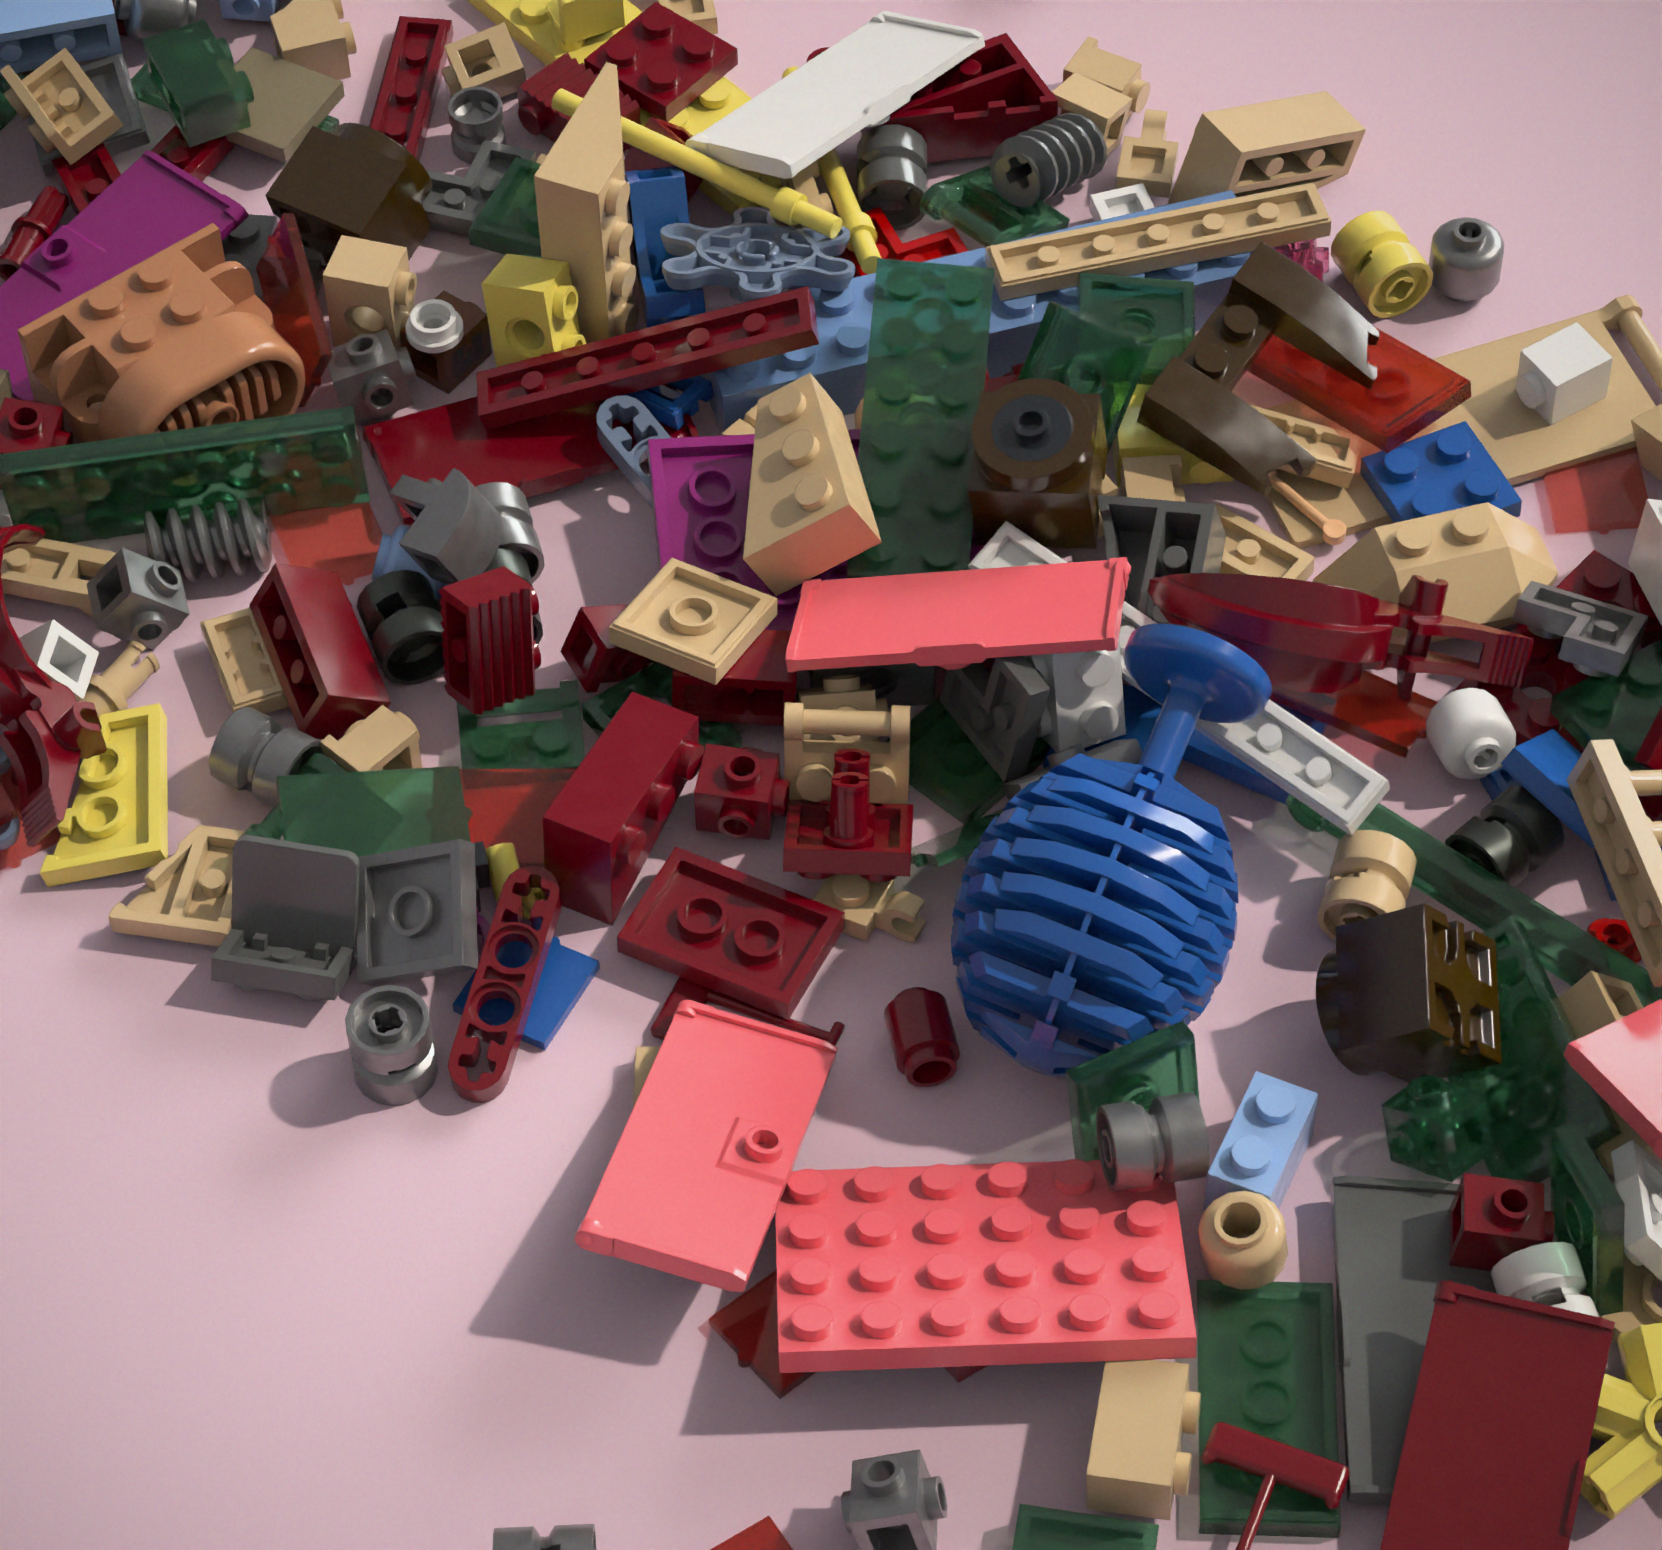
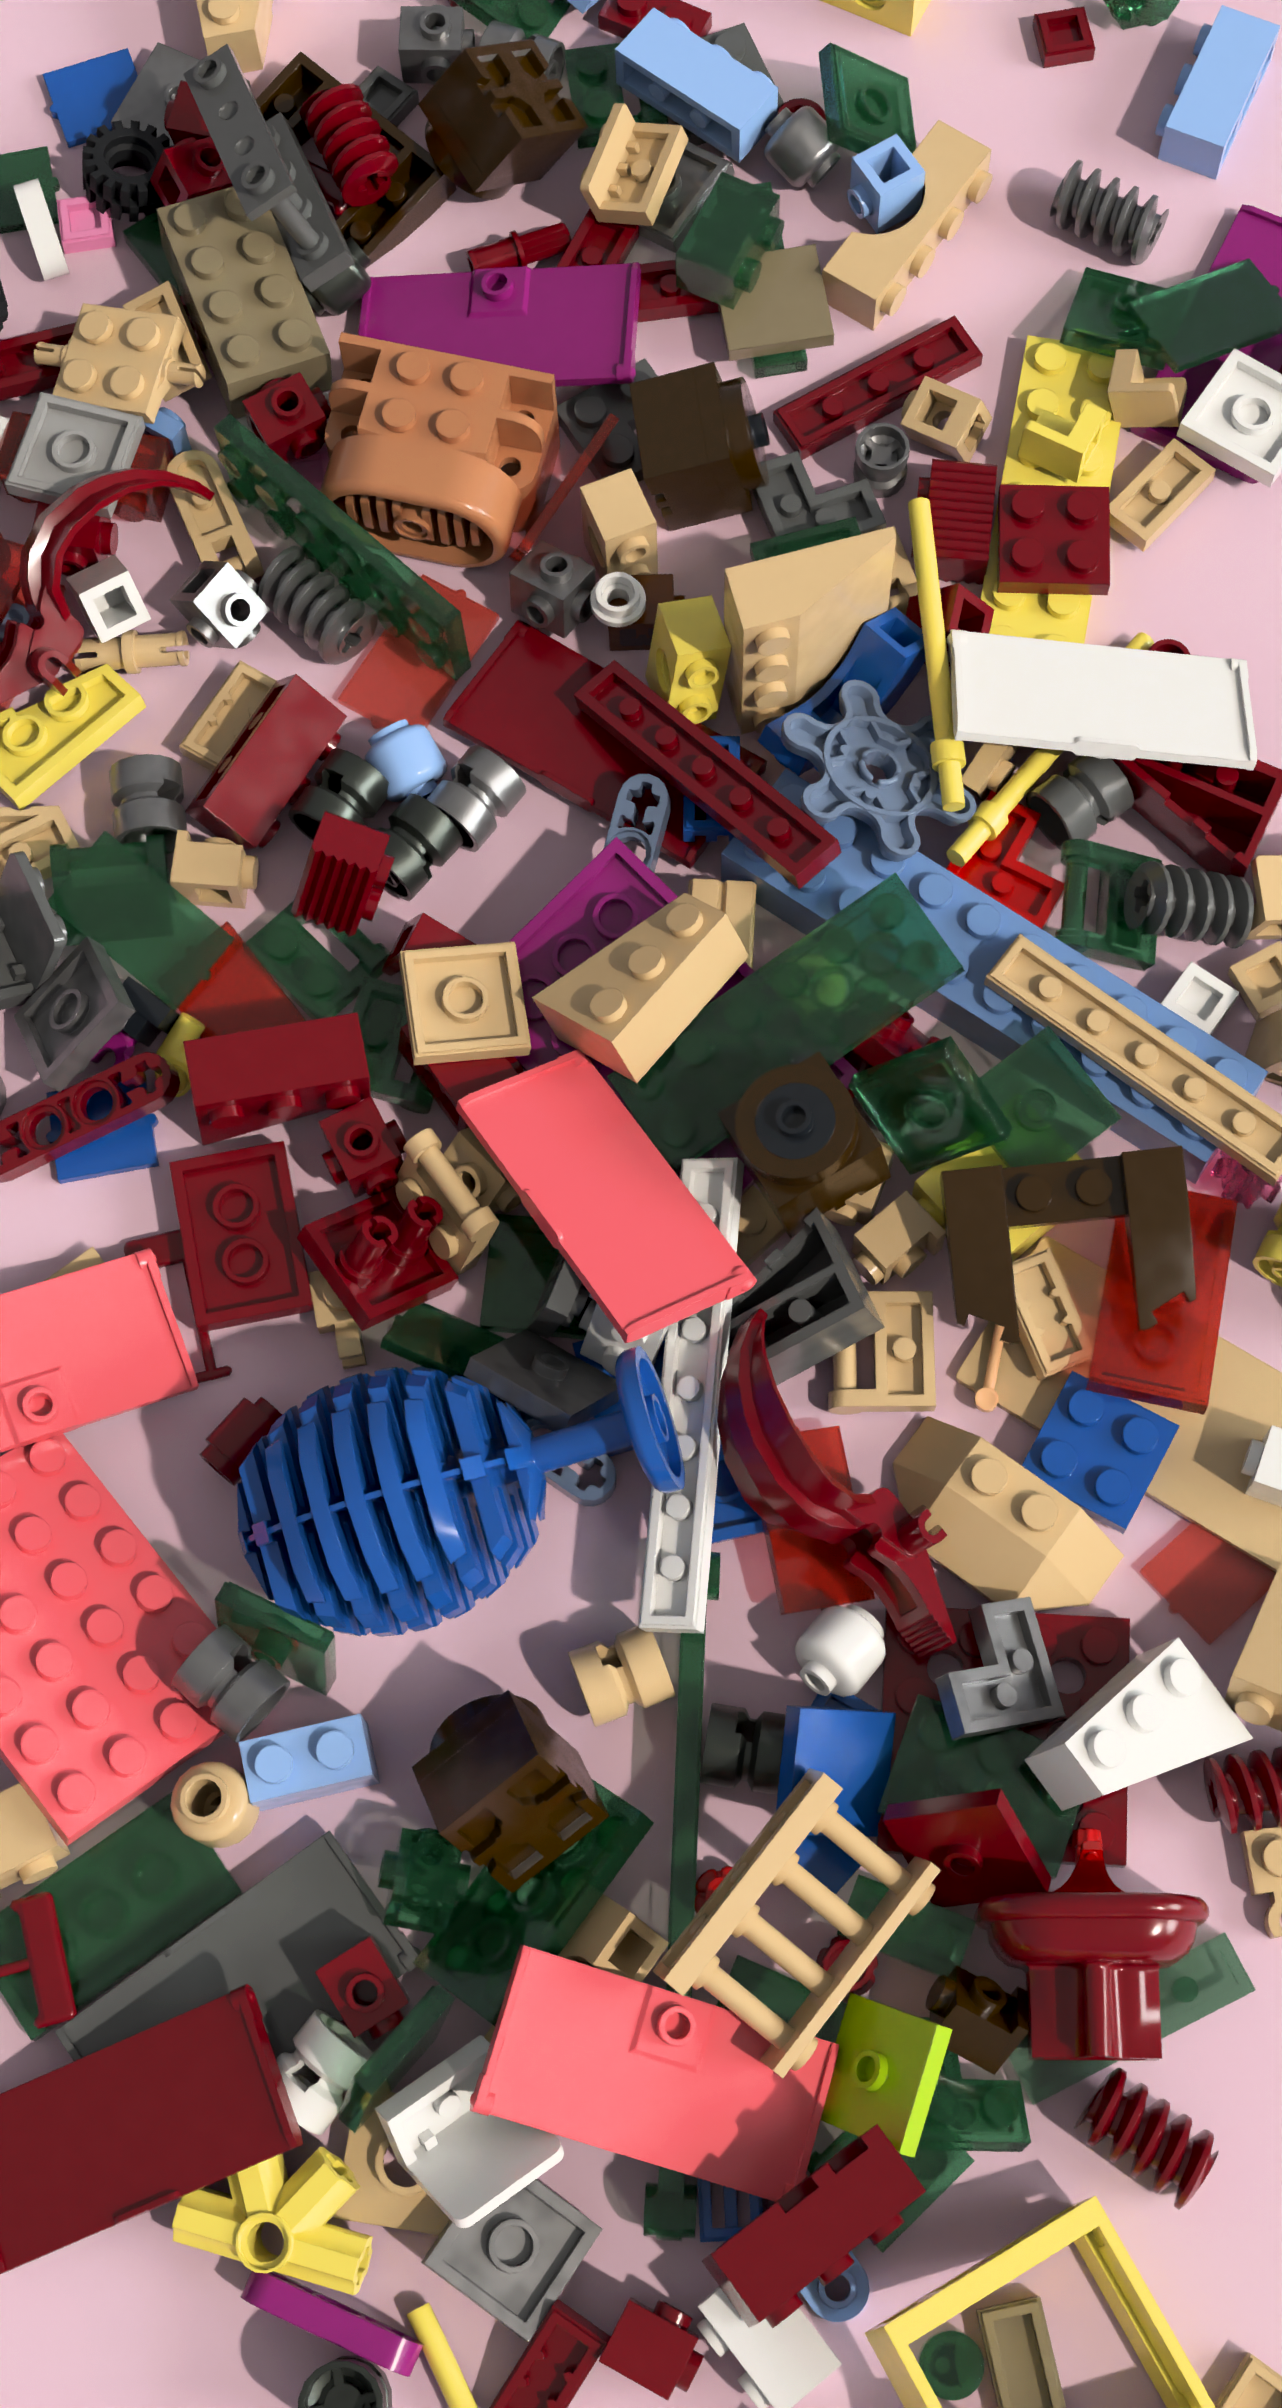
camera: 55 degrees right, 20 degrees up
(453, 526) = (419, 771): flat silver brick -> none

